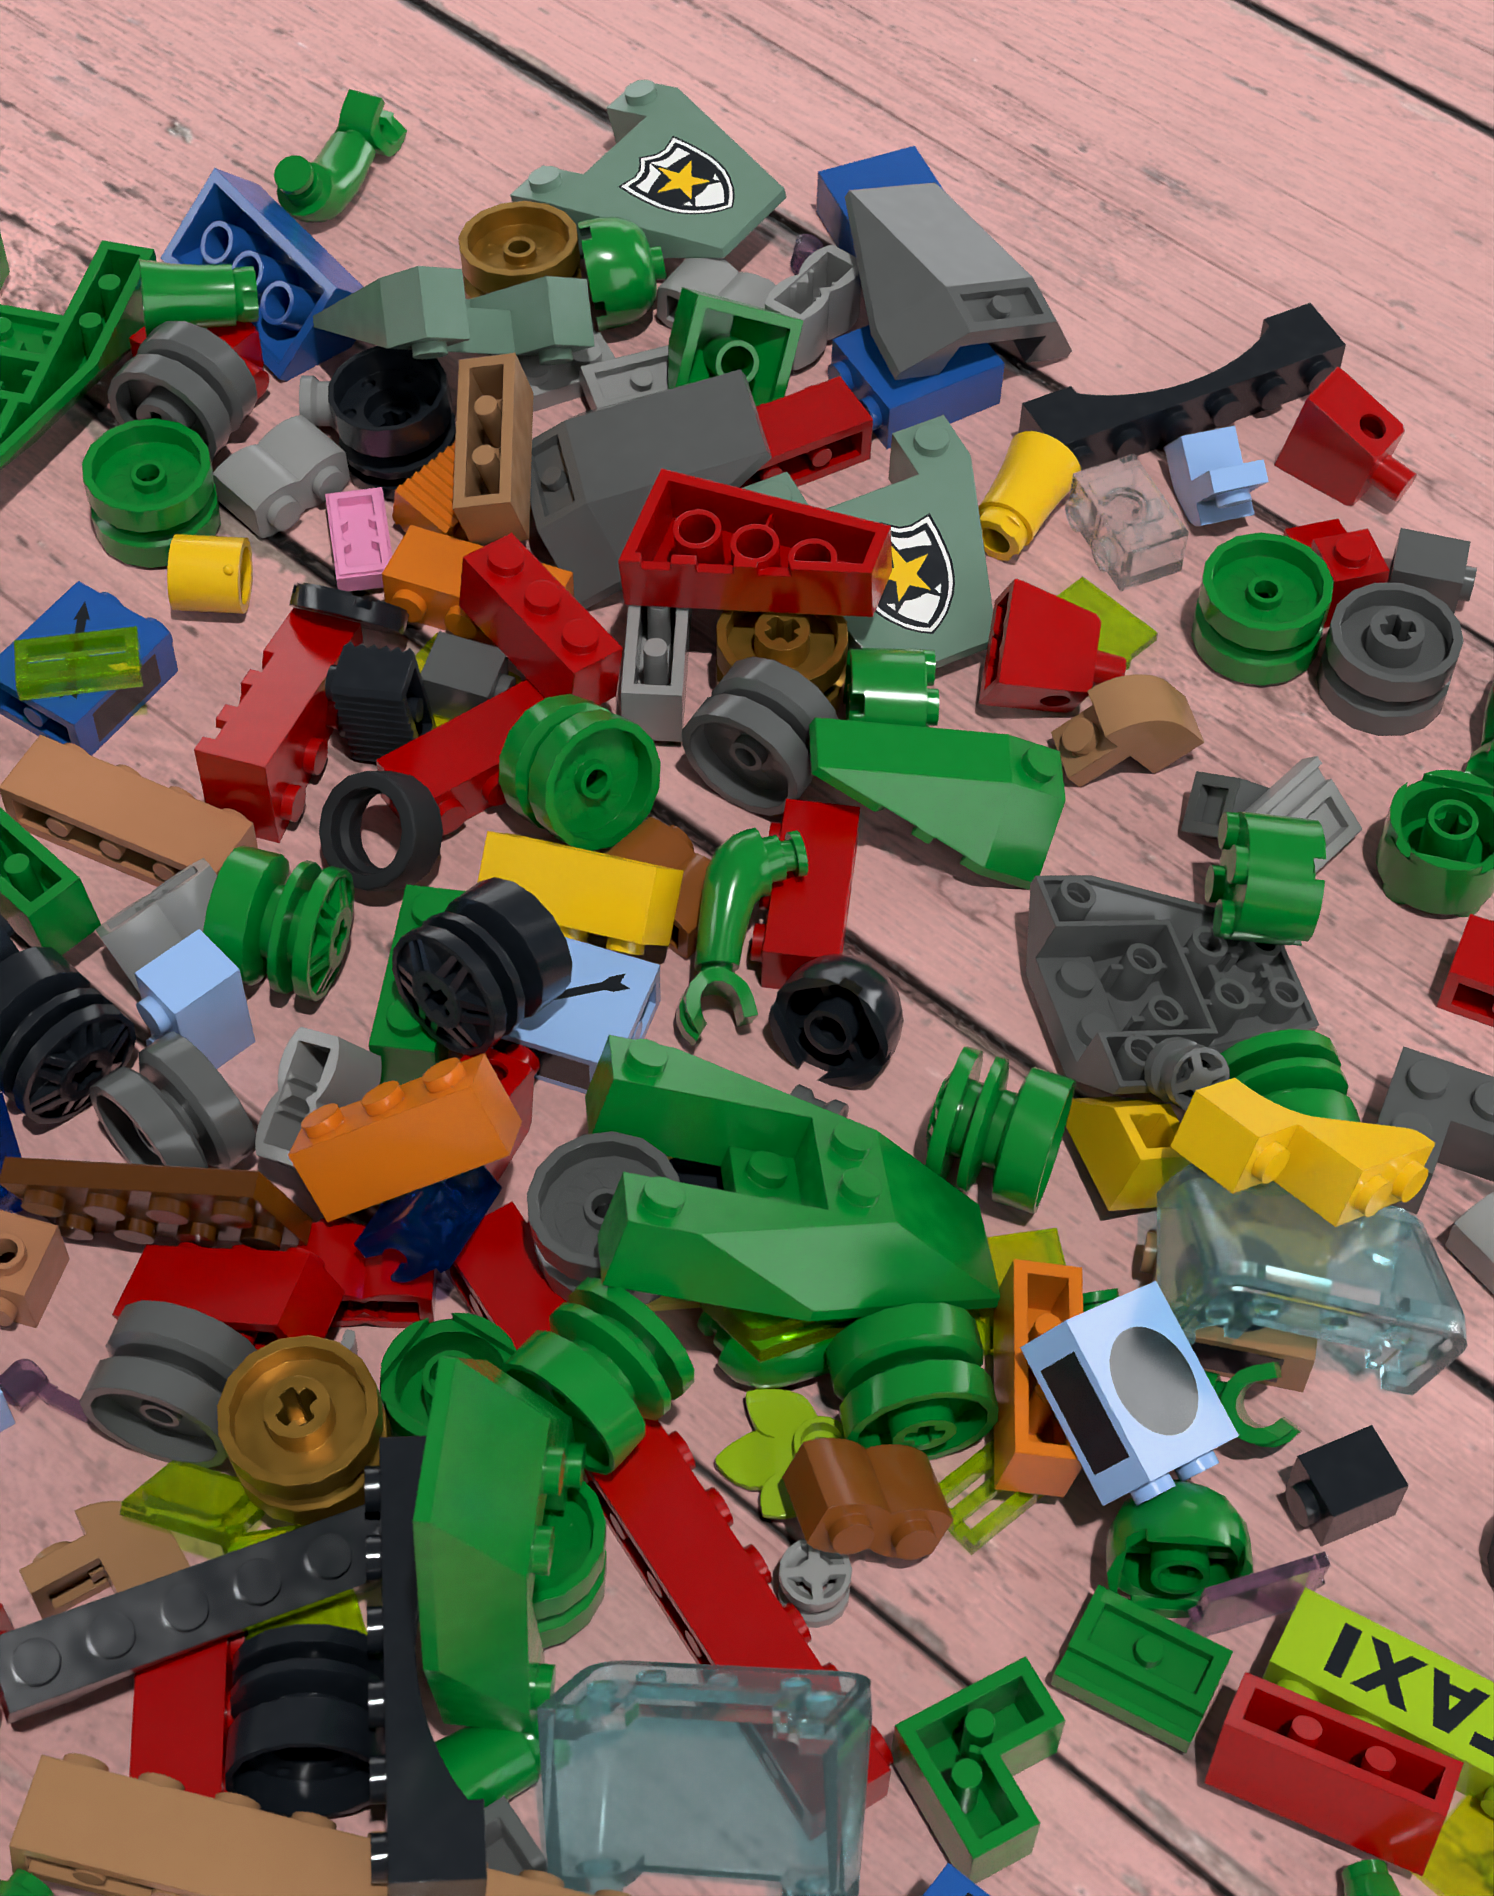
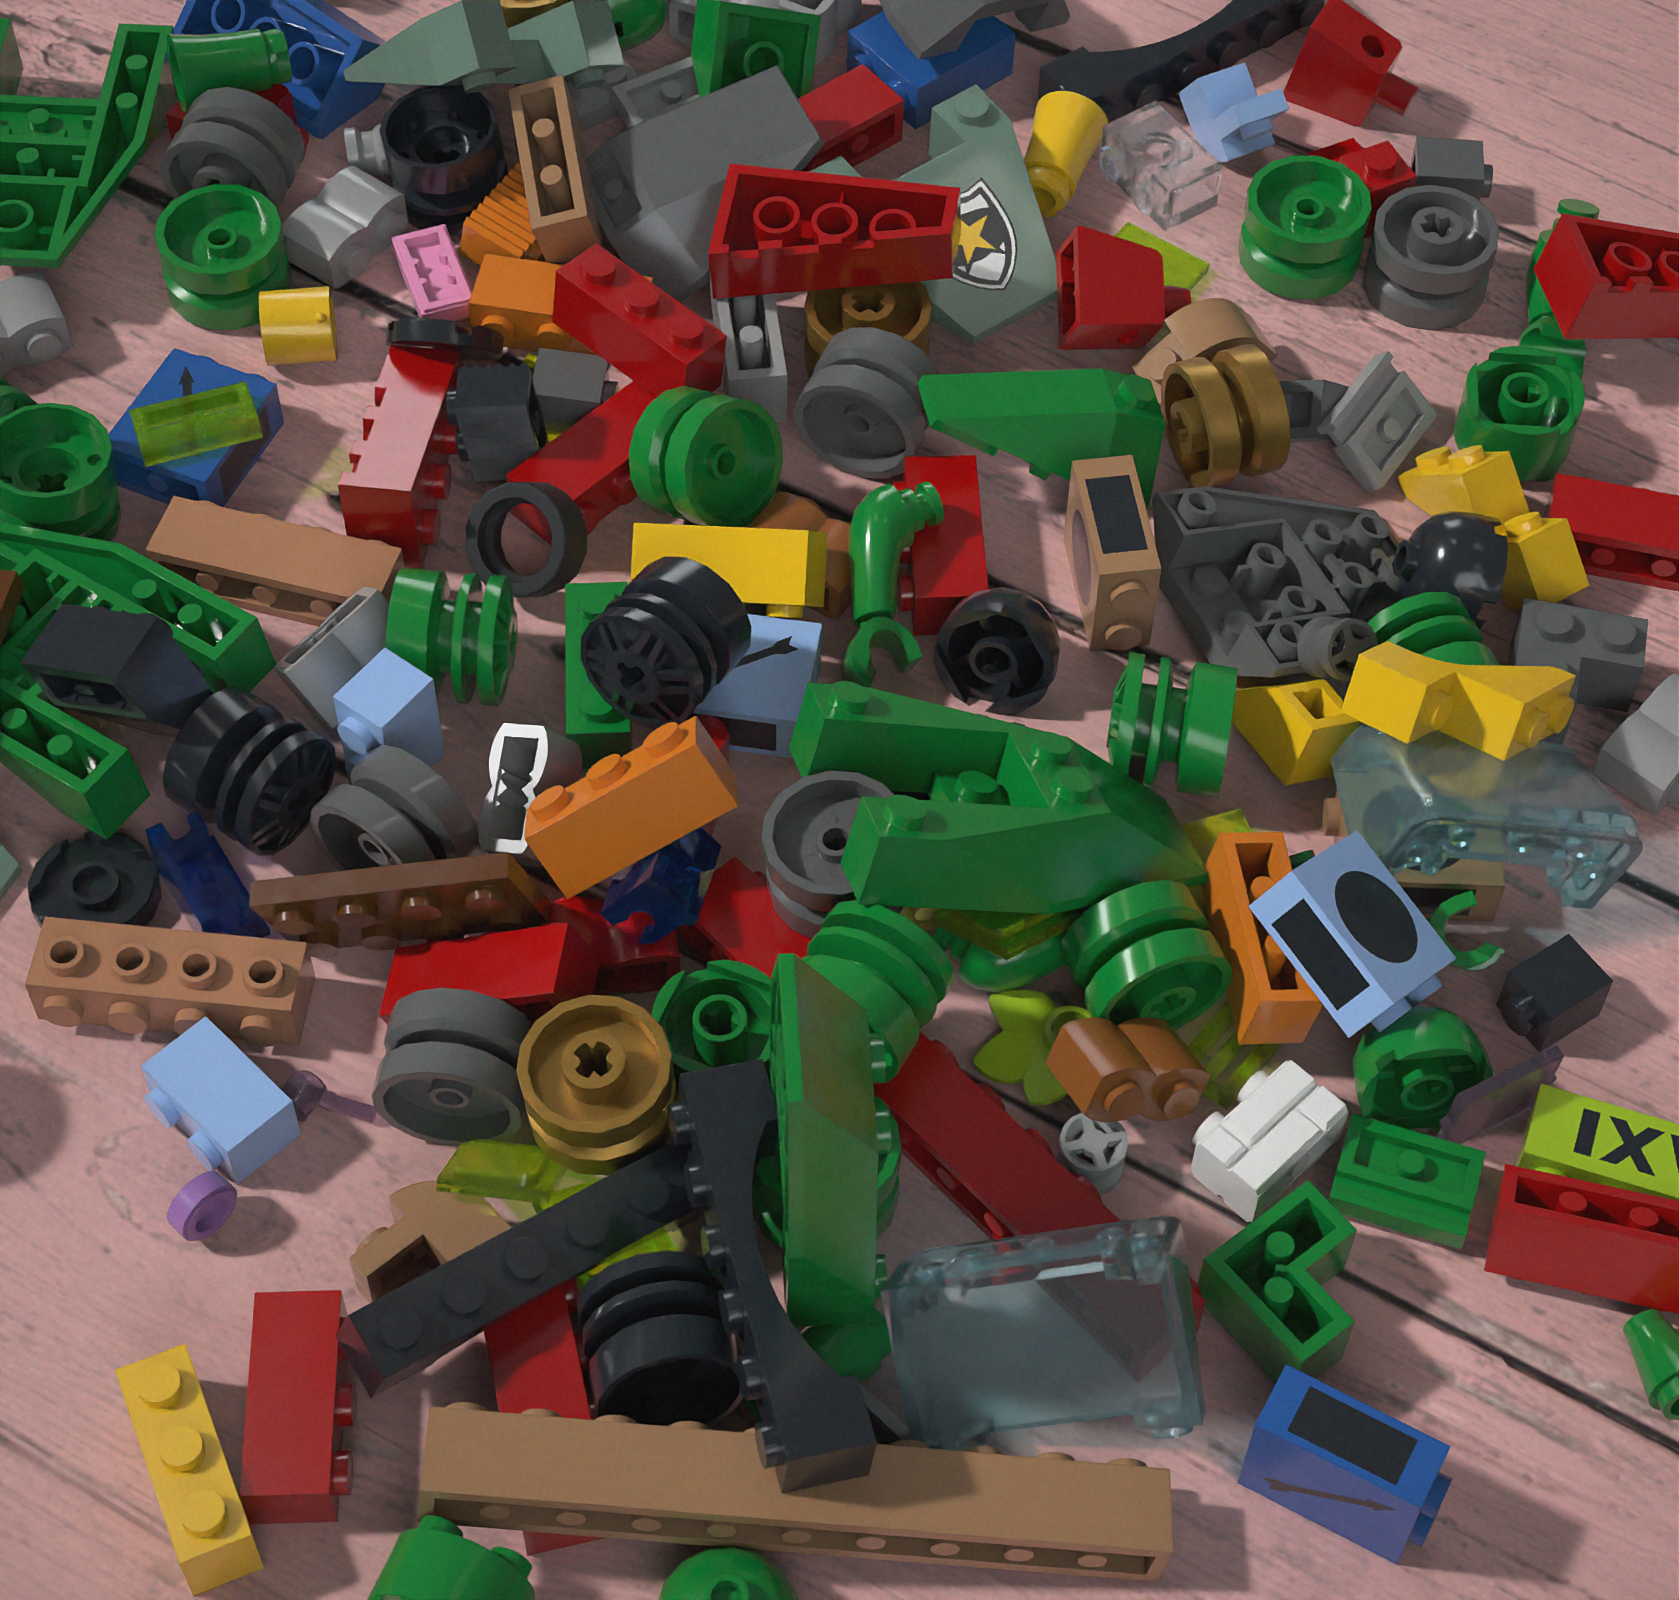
camera: 10 degrees left, 0 degrees up
(891, 686) = (980, 339): green brick -> none
(977, 933) = (1111, 553): none -> medium nougat brick
(1002, 1597) = (1267, 1138): none -> white brick
(1130, 802) = (1225, 416): none -> pearl gold wheel
(1266, 878) = (1369, 465): green brick -> none
(1337, 994) = (1455, 556): none -> black cylinder
(1388, 939) = (1541, 551): none -> yellow arch

